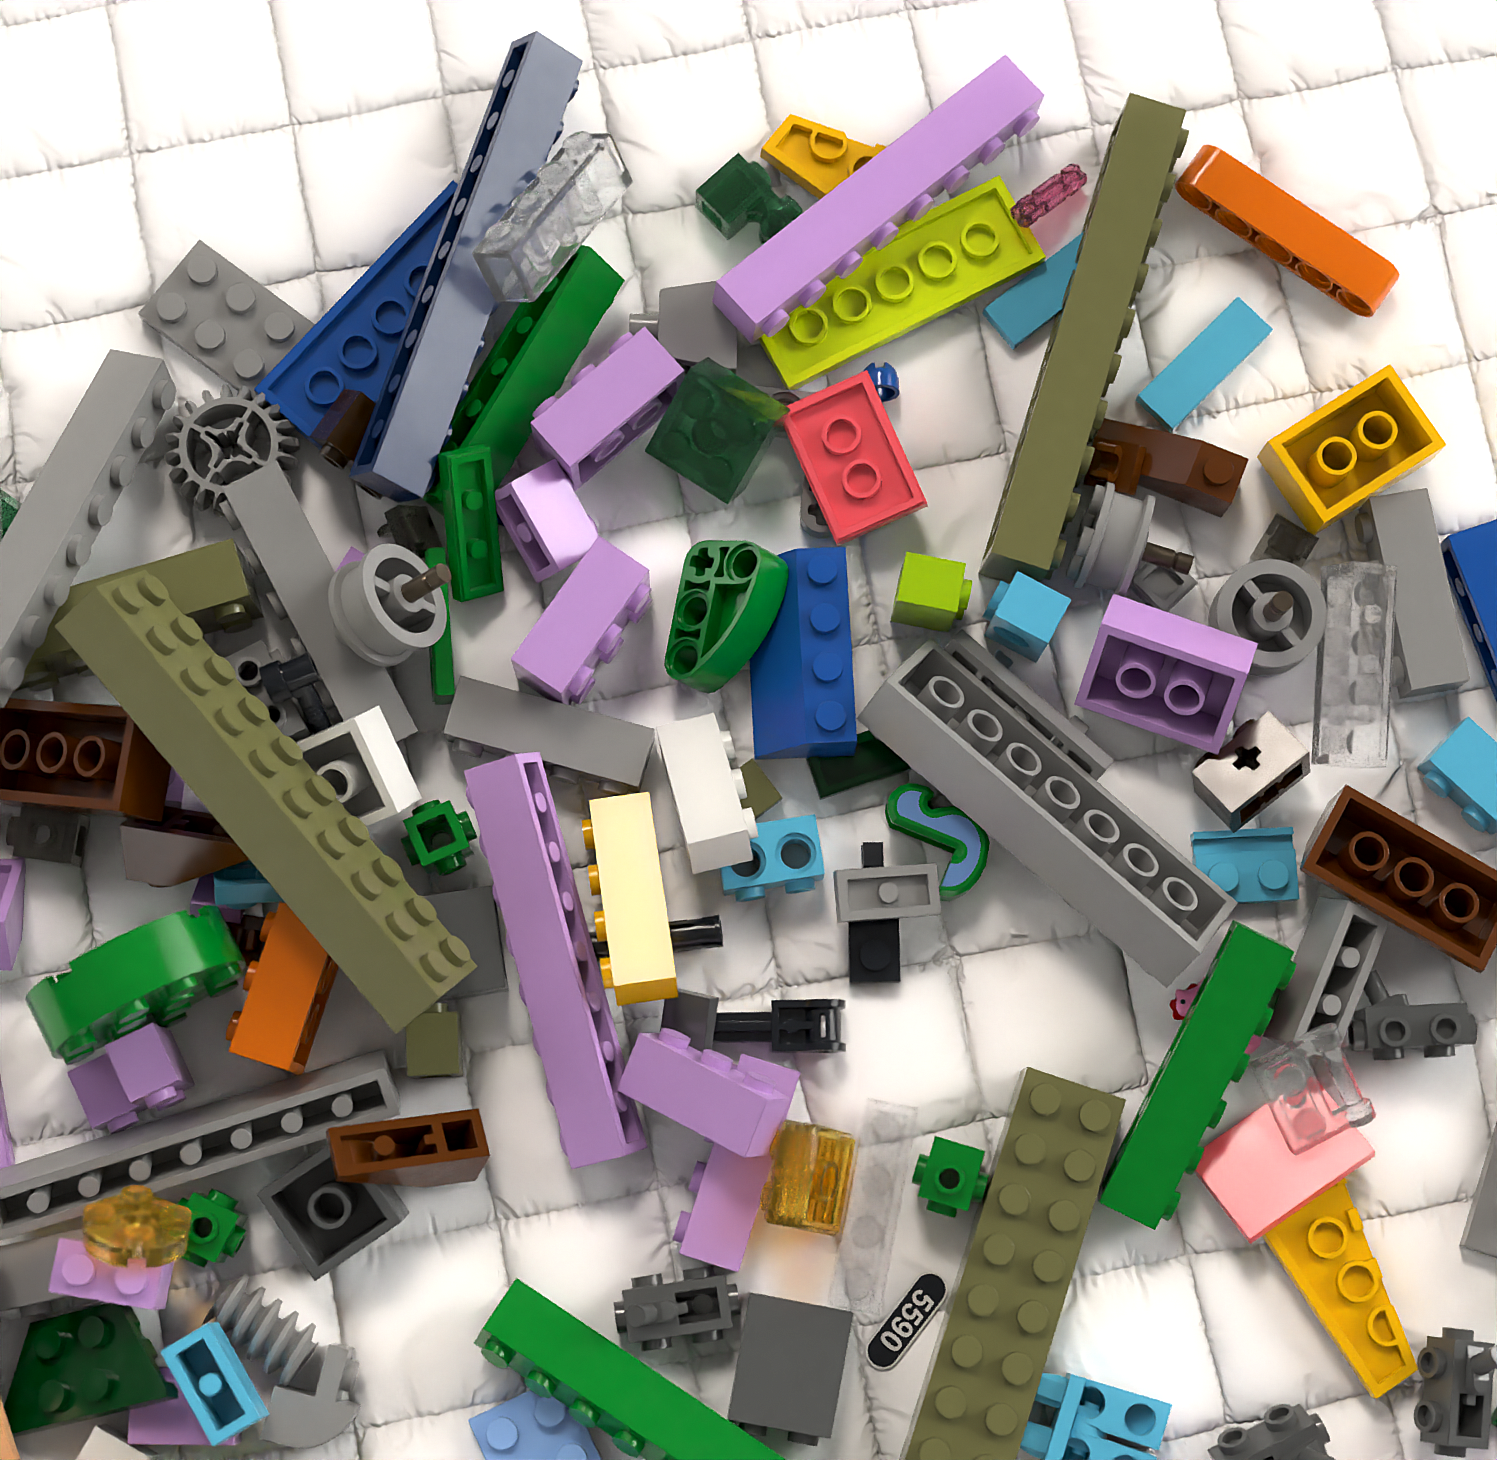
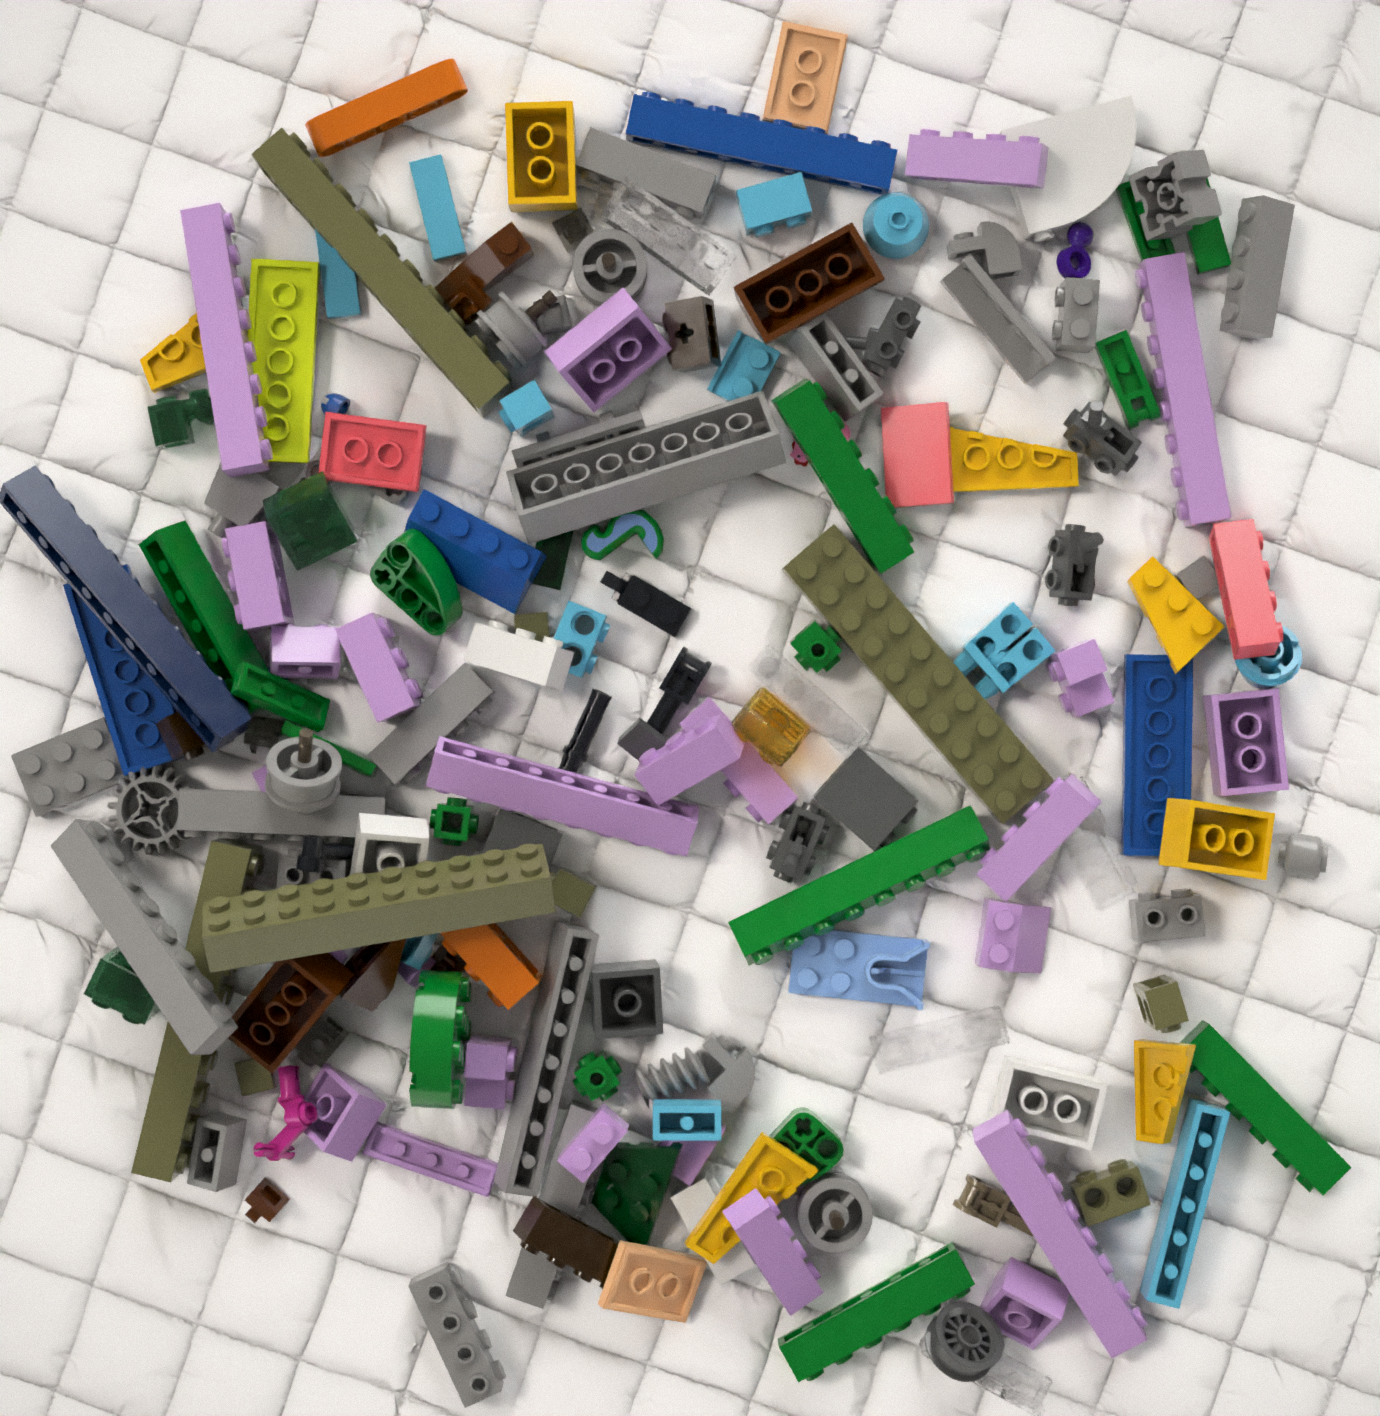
camera: 55 degrees left, 10 degrees up
(136, 1228) = (576, 1115): clear yellow plate -> none
(411, 1150) = (623, 939): reddish brown slope -> none
(552, 217) = (124, 541): clear brick -> none
(632, 899) = (554, 732): brick -> none
(886, 892) = (637, 587): light grey plate -> none
(906, 1320) = (879, 718): black sticker -> none
(930, 592) = (480, 455): lime brick -> none
(1048, 195) = (281, 236): clear pink axle -> none
(1297, 1096) = (891, 427): clear plate -> none

